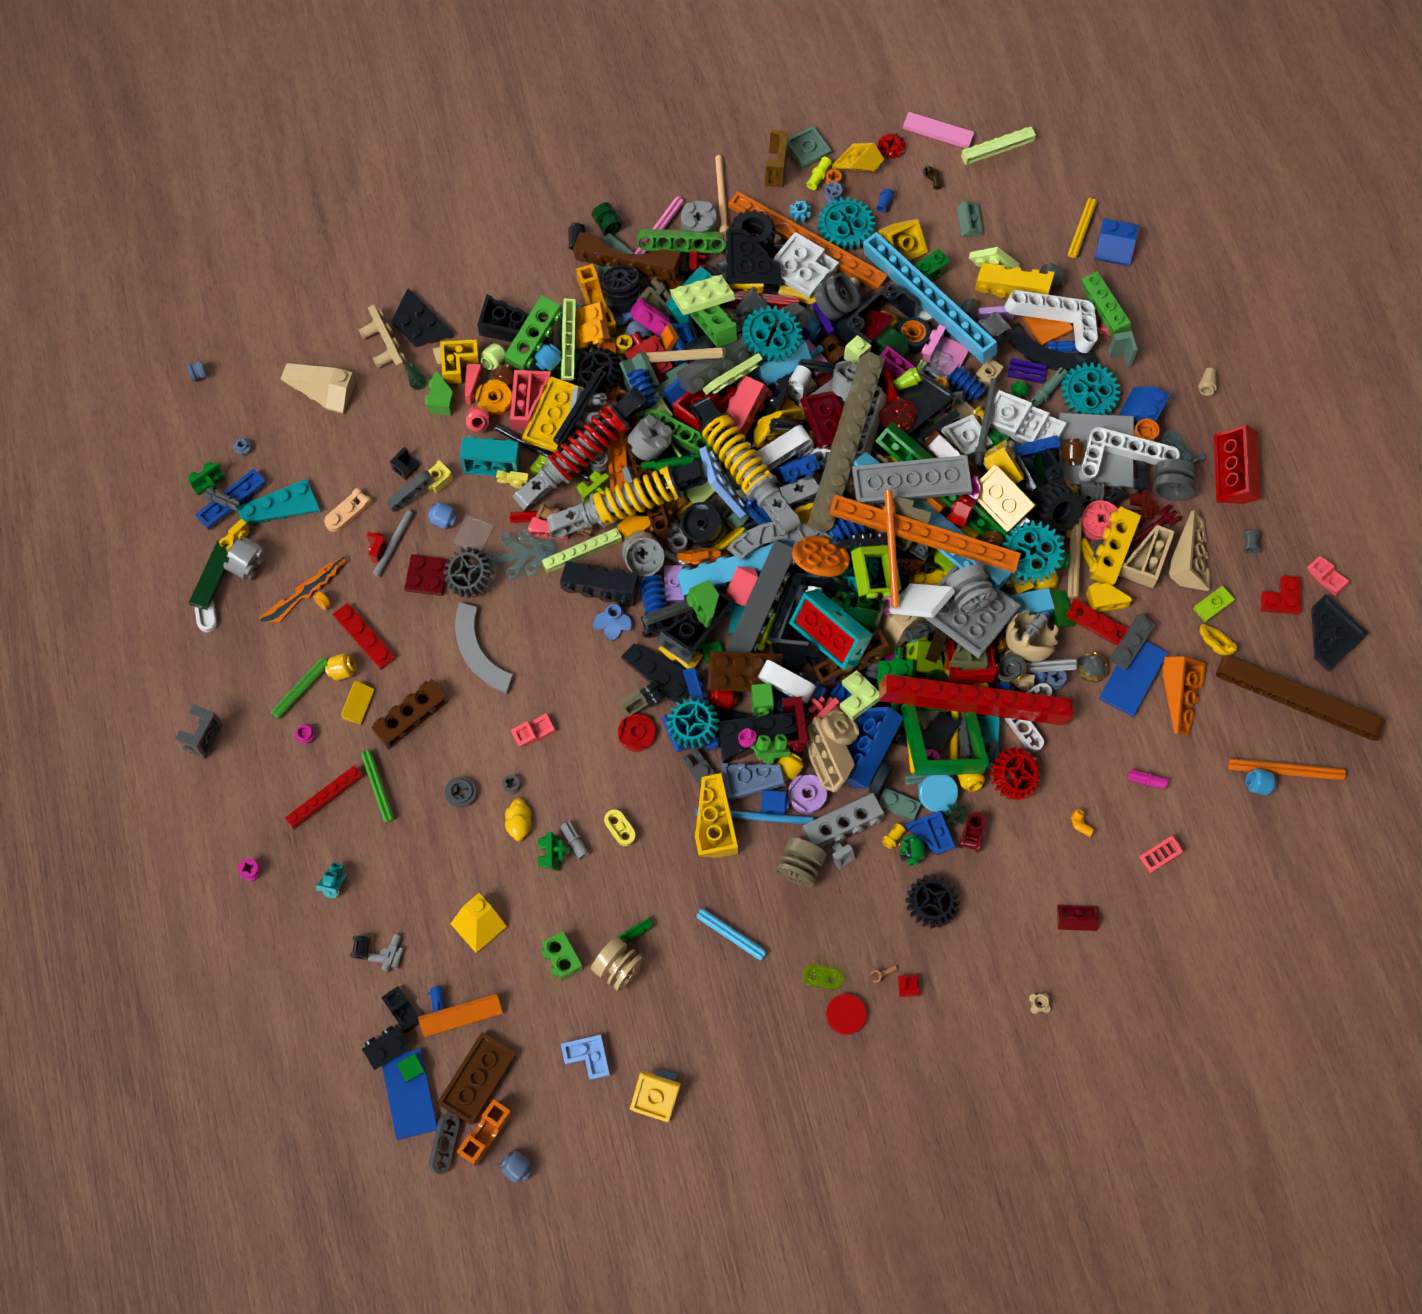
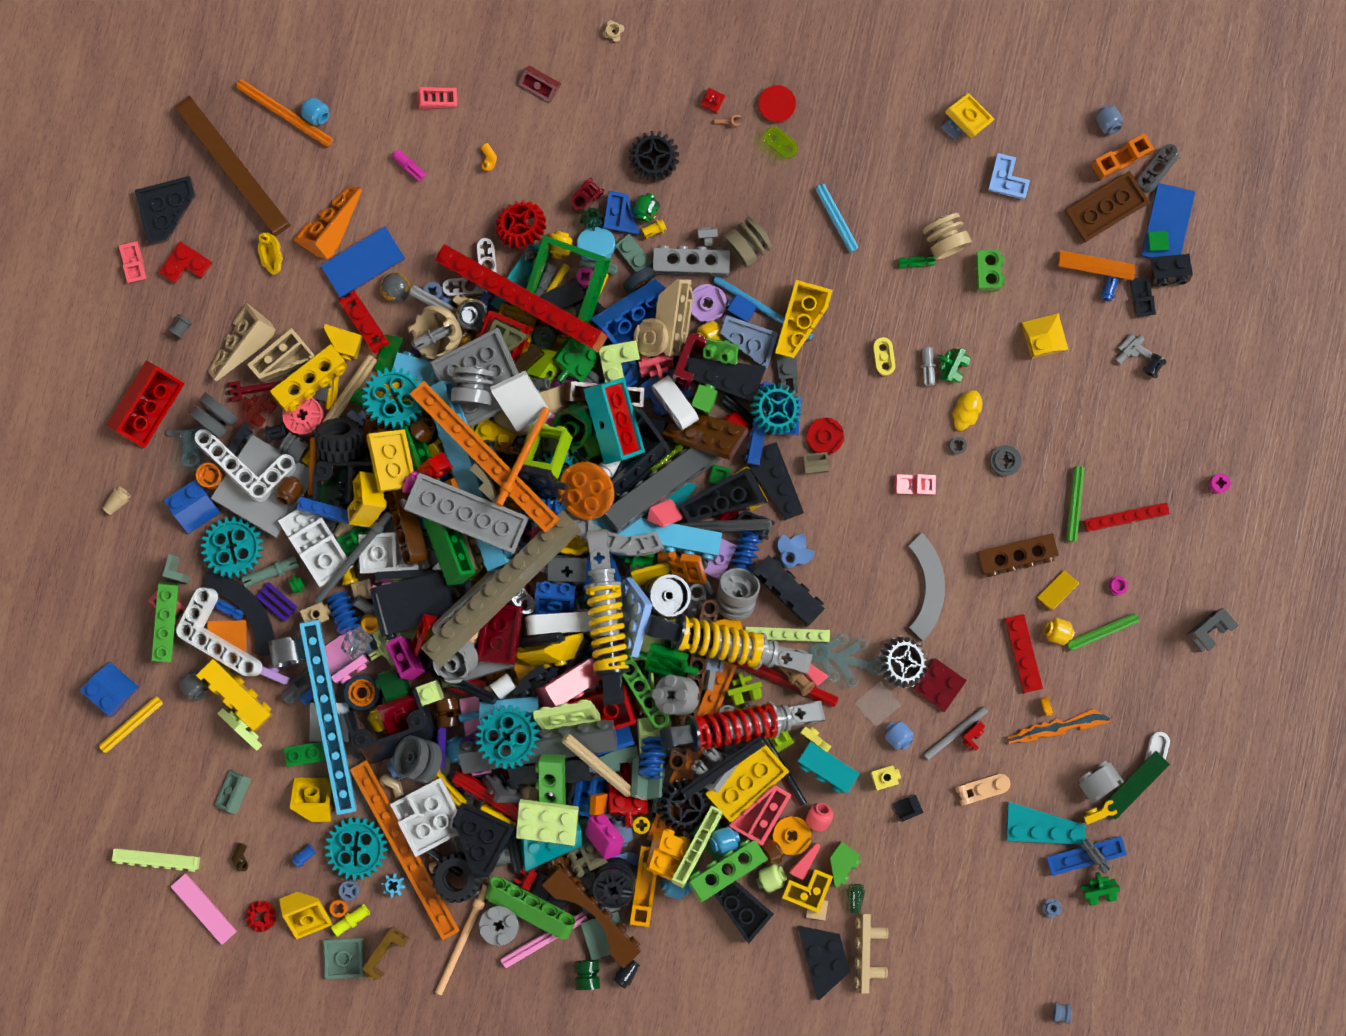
camera: 150 degrees left, 15 degrees up
(325, 385) = (948, 933): tan wedge -> none
(332, 880) = (1153, 434): teal hips -> none
(410, 491) = (918, 772): dark grey beam -> none
(651, 692) = (794, 462): black wheel -> none
(703, 600) = (708, 510): bright green slope -> none
(747, 737) = (737, 368): dark pink plate -> none
(898, 406) = (429, 607): clear red plate -> none
(908, 379) = (400, 630): lime cone -> none
(1131, 641) = (347, 289): dark grey plate -> none
(1213, 604) = (250, 289): lime plate -> none

